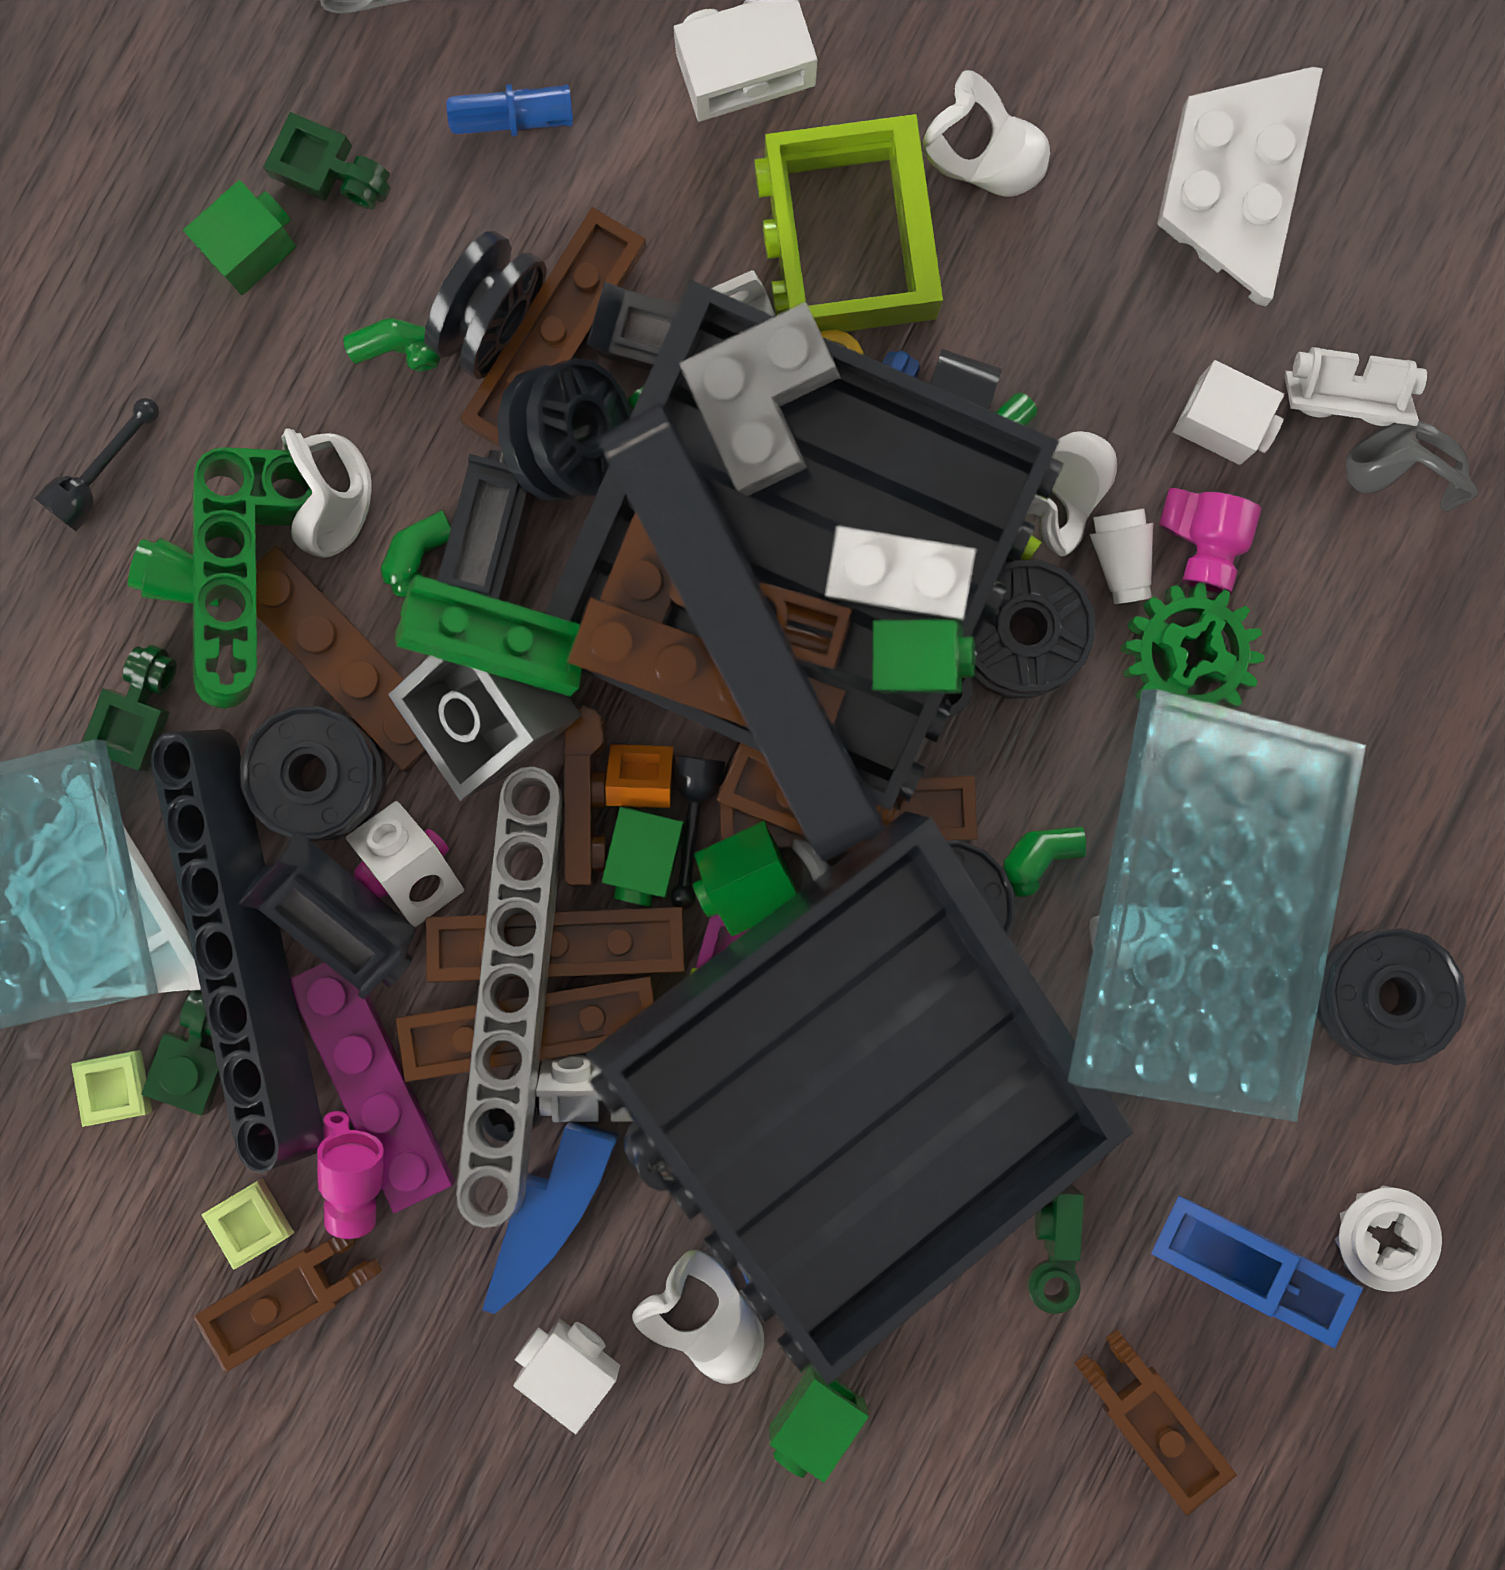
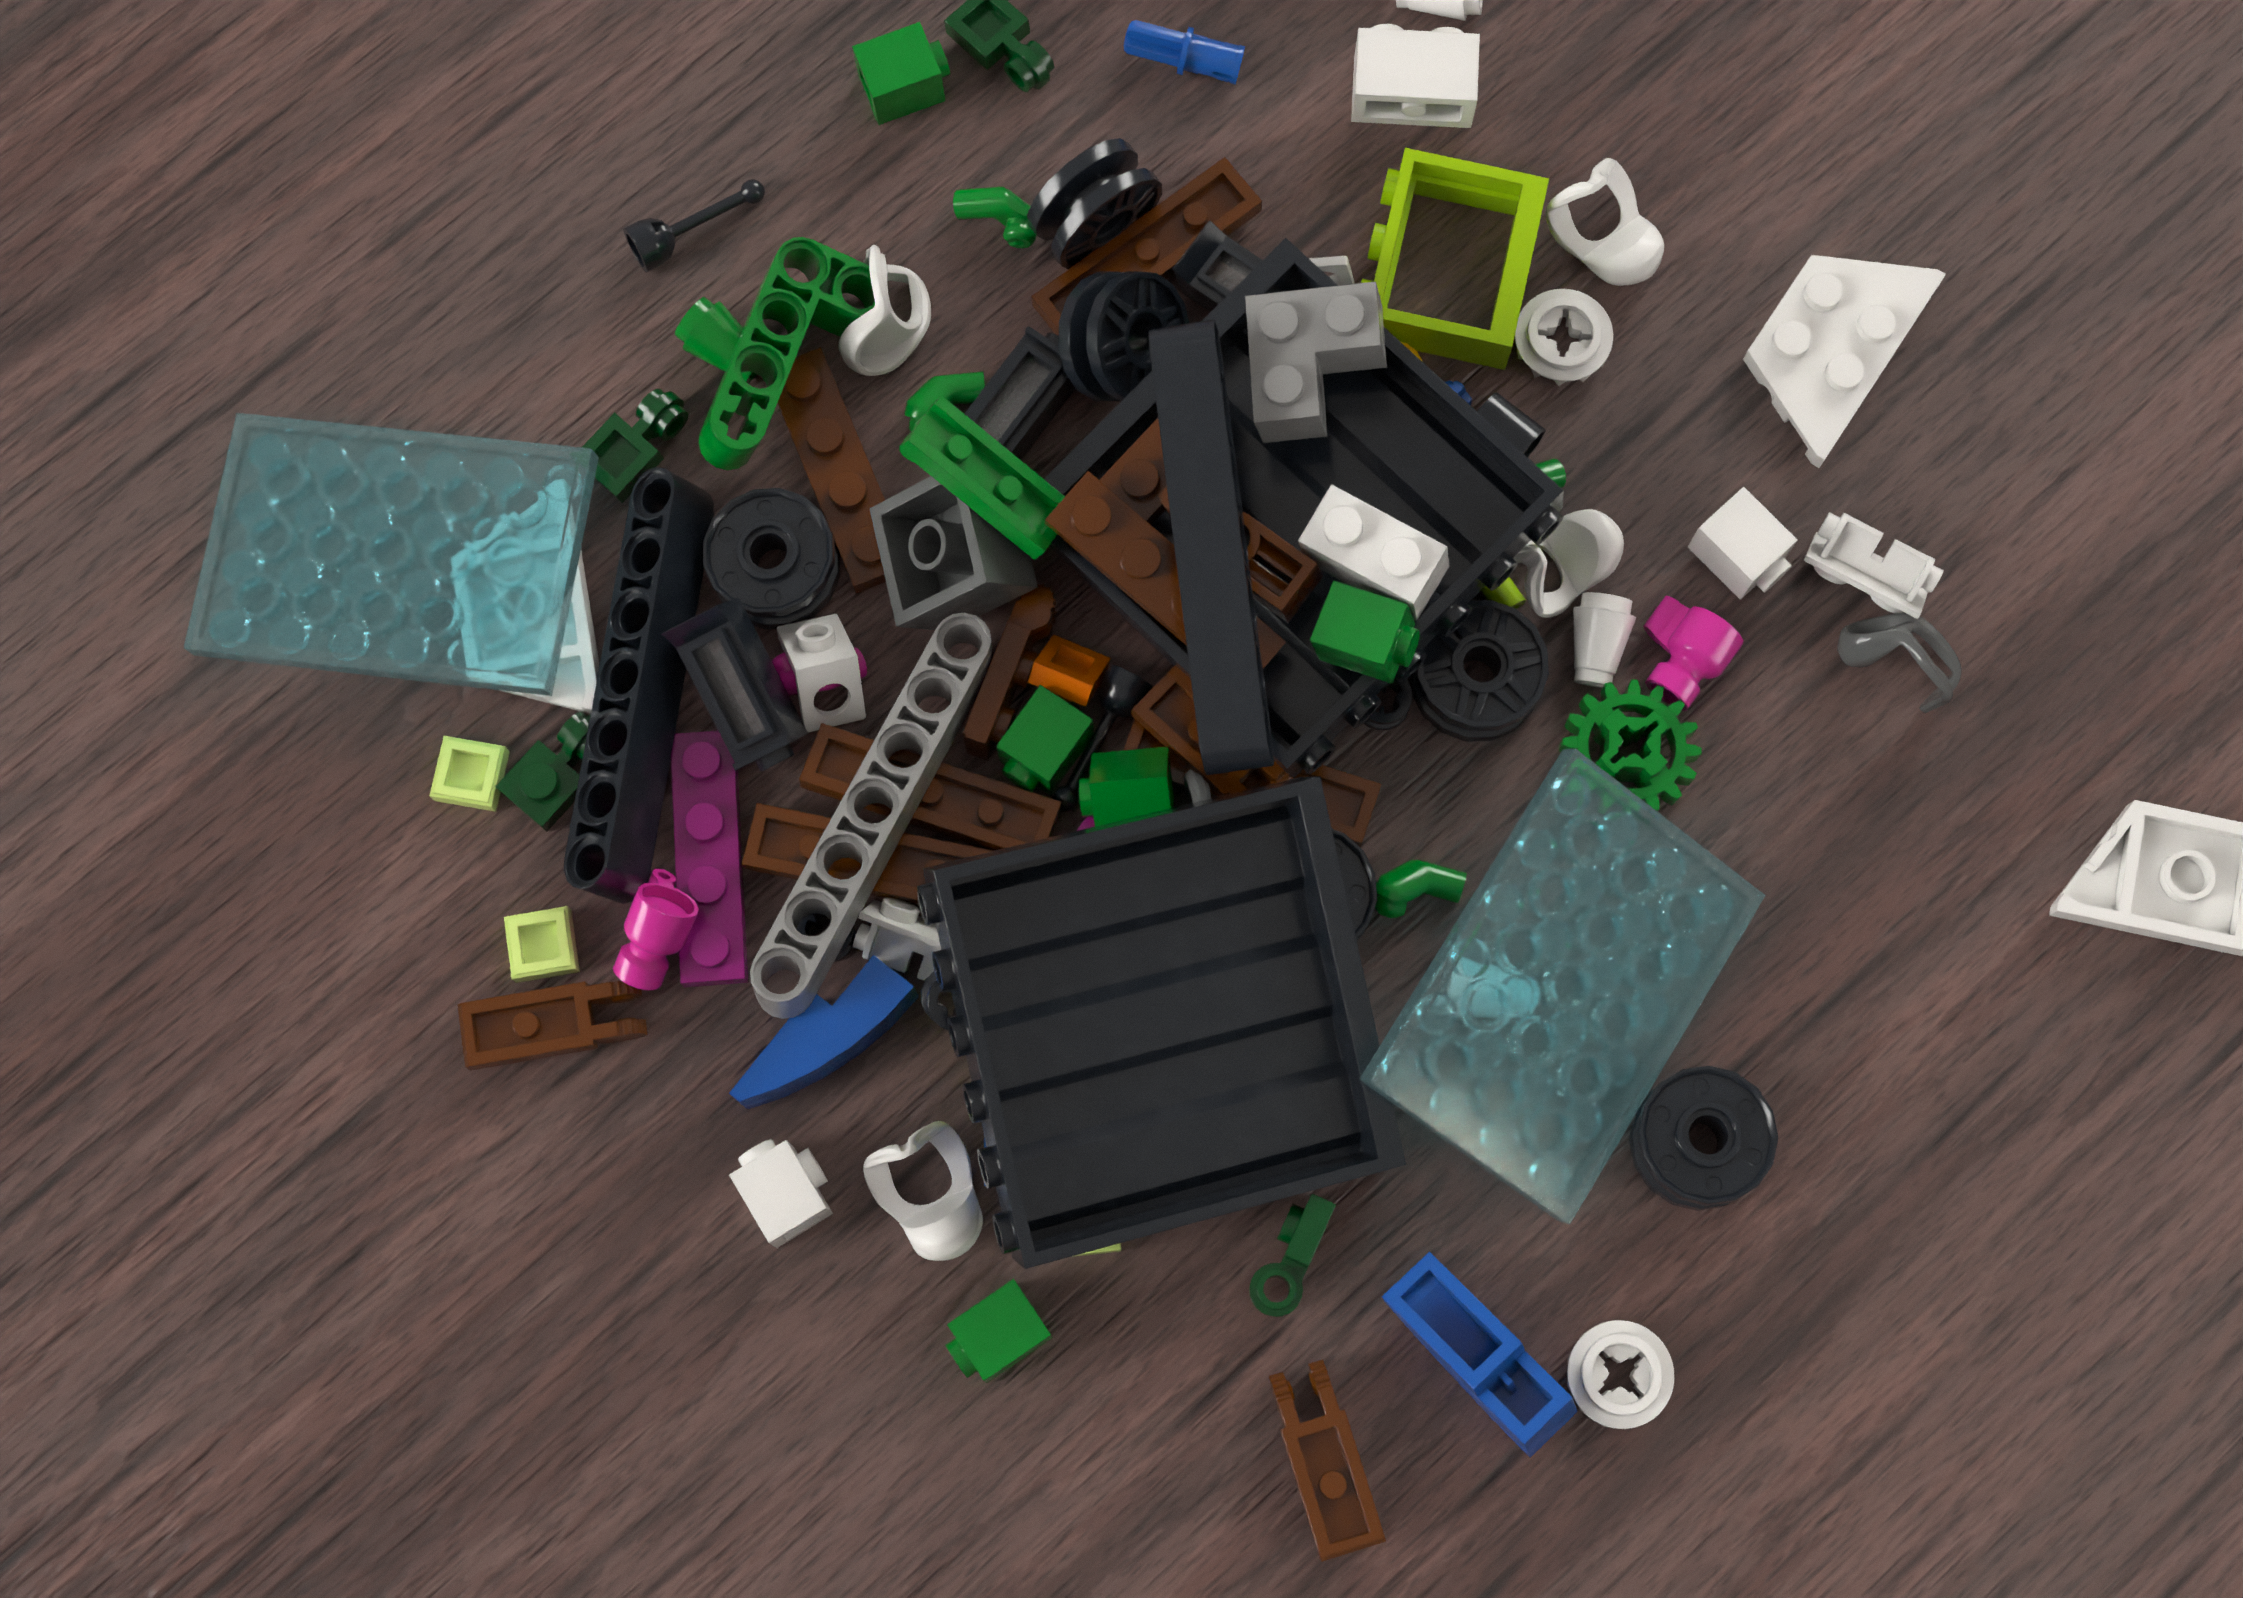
camera: 25 degrees right, 10 degrees down
(997, 243) = (1584, 320): none -> white gear

